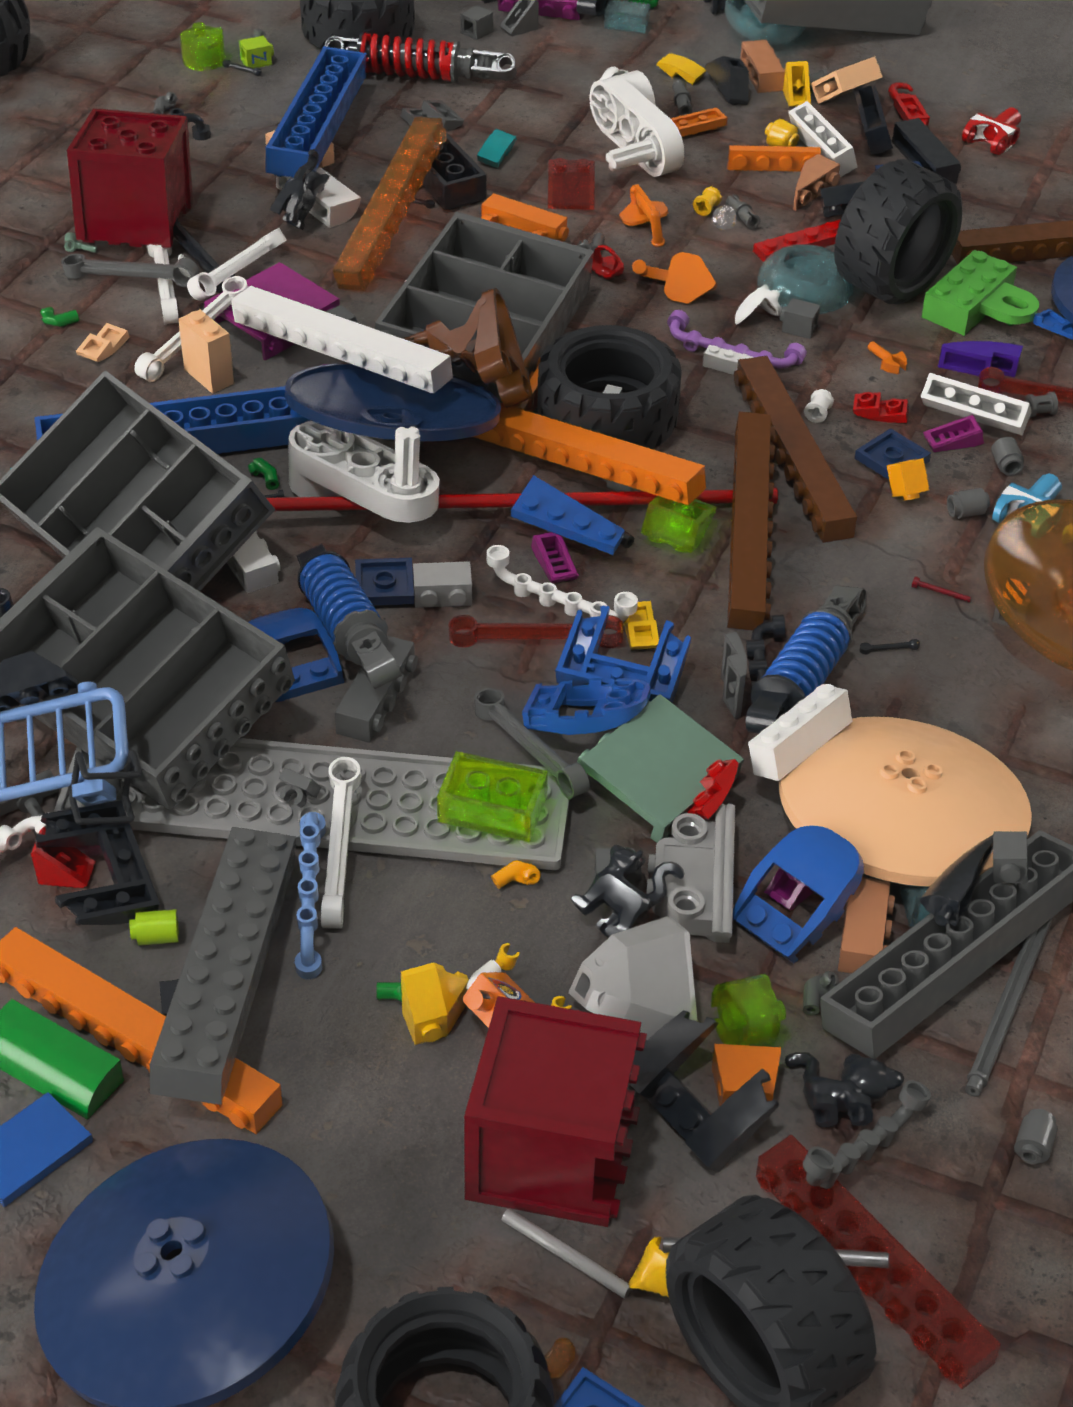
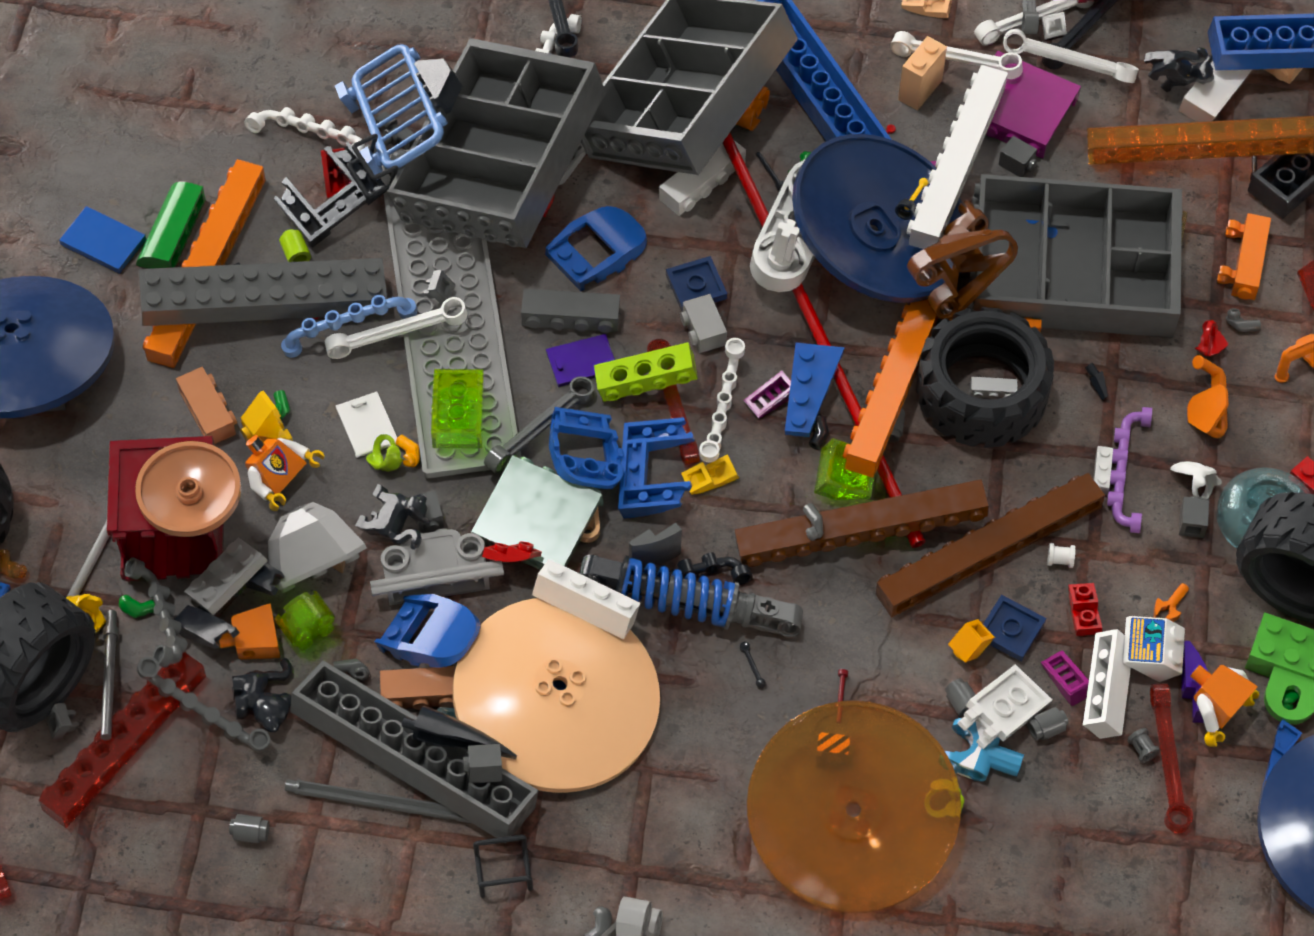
camera: 75 degrees right, 15 degrees up
(347, 613) = (622, 262): piece -> none
(370, 1069) = (206, 405): none -> nougat brick
(392, 375) = (906, 204): none -> black hinge
(442, 700) = (579, 358): none -> dark purple container
(457, 912) = (365, 423): none -> white container
(498, 596) = (634, 367): none -> lime brick
(530, 895) = (392, 460): none -> lime piece
(591, 1022) = (188, 488): none -> nougat dish
(618, 1186) = (174, 645): none -> dark grey bar
(665, 1213) = (134, 608): none -> green arm
(670, 1083) = (225, 575): none -> light grey plate
(752, 536) = (816, 520): none -> dark grey arm
(945, 362) = (1154, 647): none -> slope
(989, 473) = (1005, 706): none -> white tile
(1016, 332) = (1221, 698): none -> orange torso

